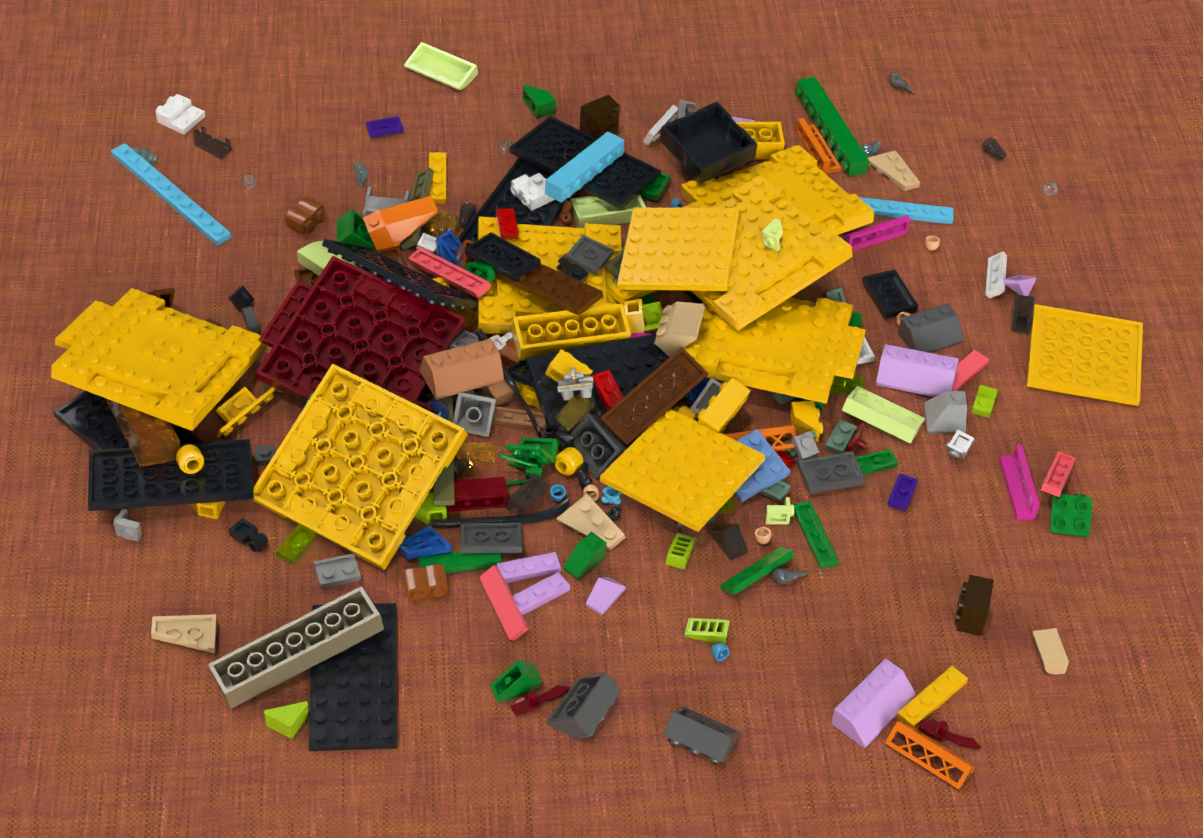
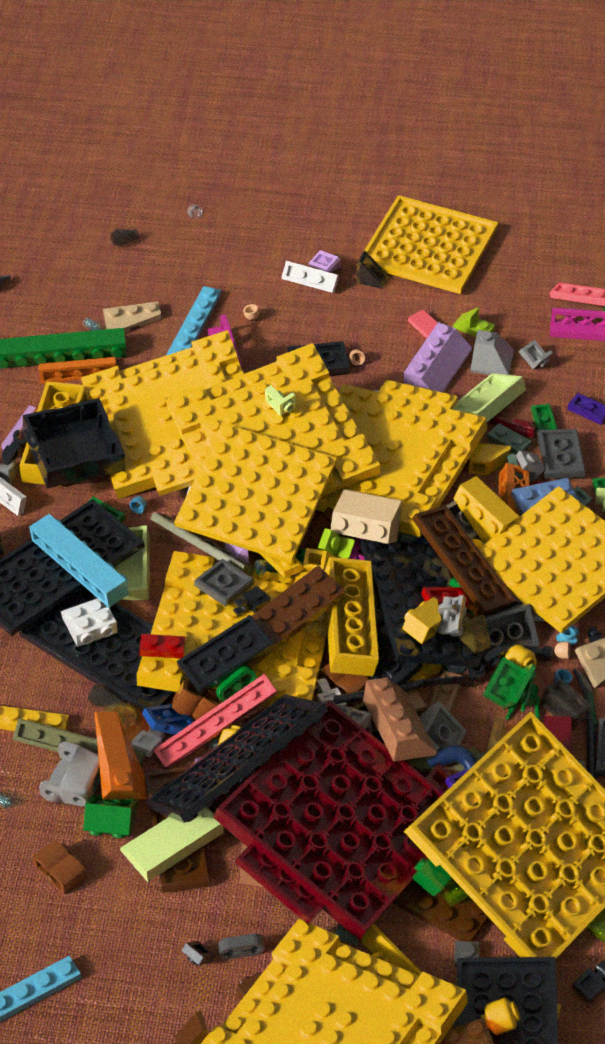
camera: 75 degrees left, 0 degrees up
(565, 214) = (130, 604): dark orange arm -> none
(931, 329) = (378, 341): dark grey slope -> none

